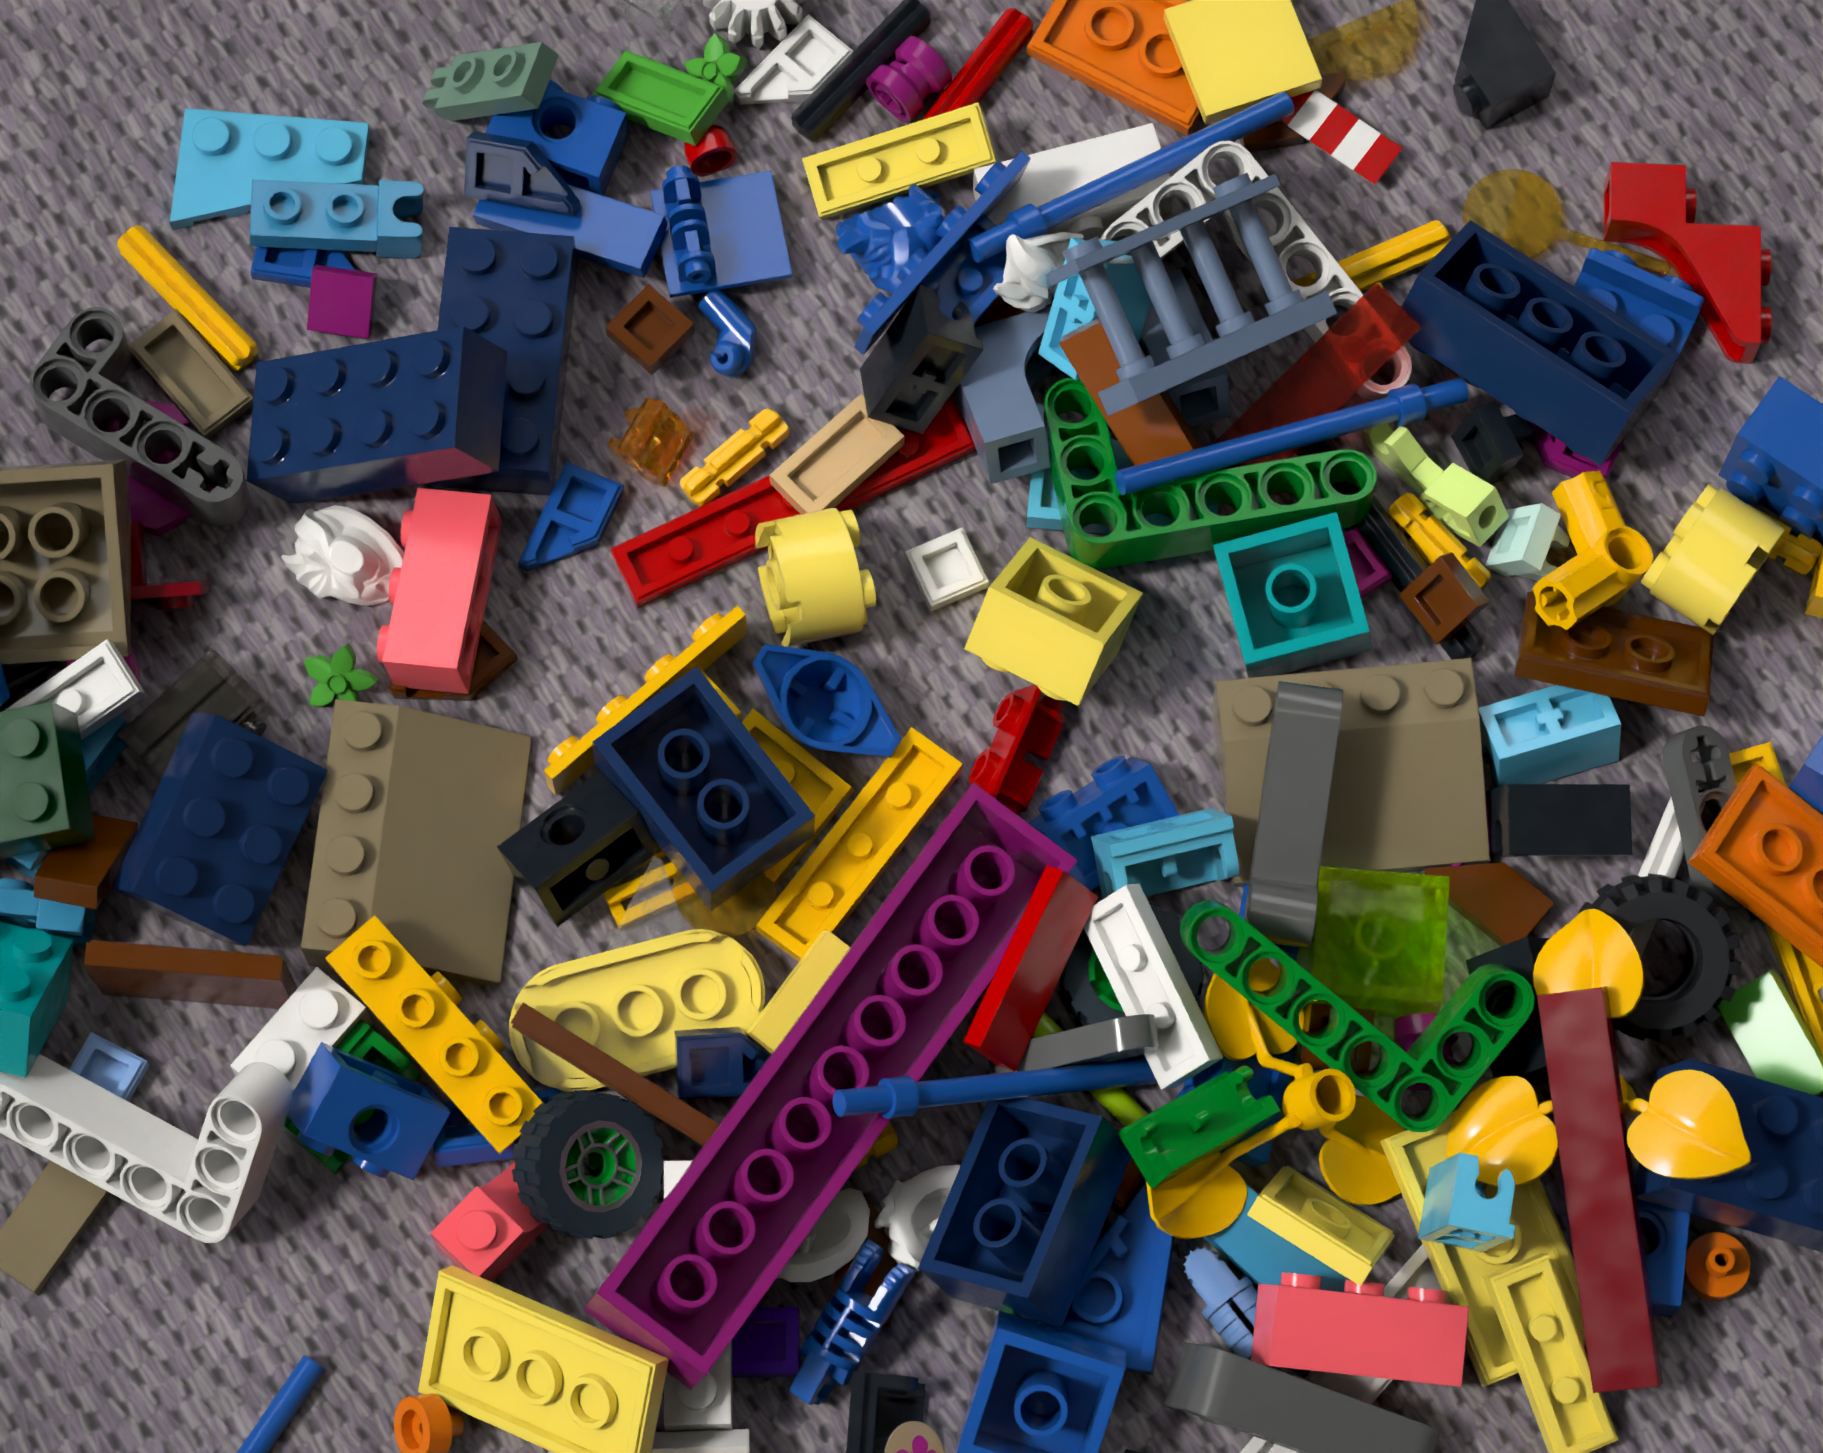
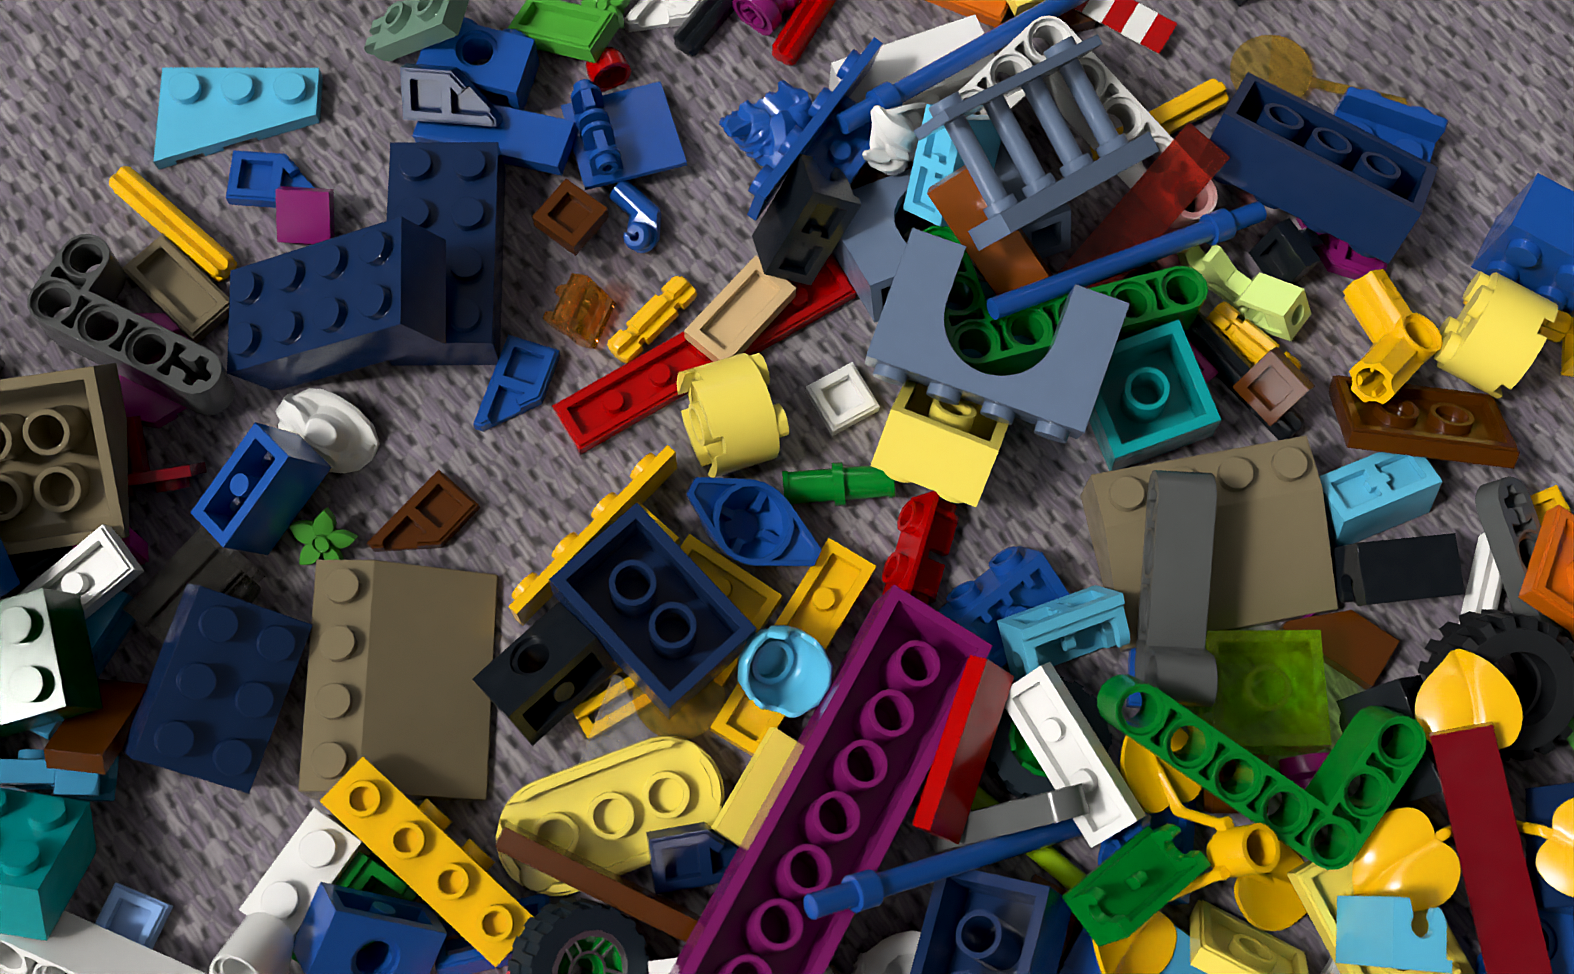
camera: 10 degrees left, 0 degrees up
(189, 974) = (194, 824): reddish brown tile -> none
(277, 616) = (260, 489): none -> blue brick
(338, 216) = (296, 145): dark azure plate -> none
(440, 590) = (406, 455): coral brick -> none
(843, 867) = (784, 670): none -> medium azure hair
(896, 159) = (761, 63): light yellow tile -> none
(927, 668) = (836, 484): none -> green pin
(1174, 584) = (1052, 394): none -> sand blue arch
(1525, 540) = (1329, 335): light aqua tile -> none
(1721, 262) = (1391, 57): red arch -> none

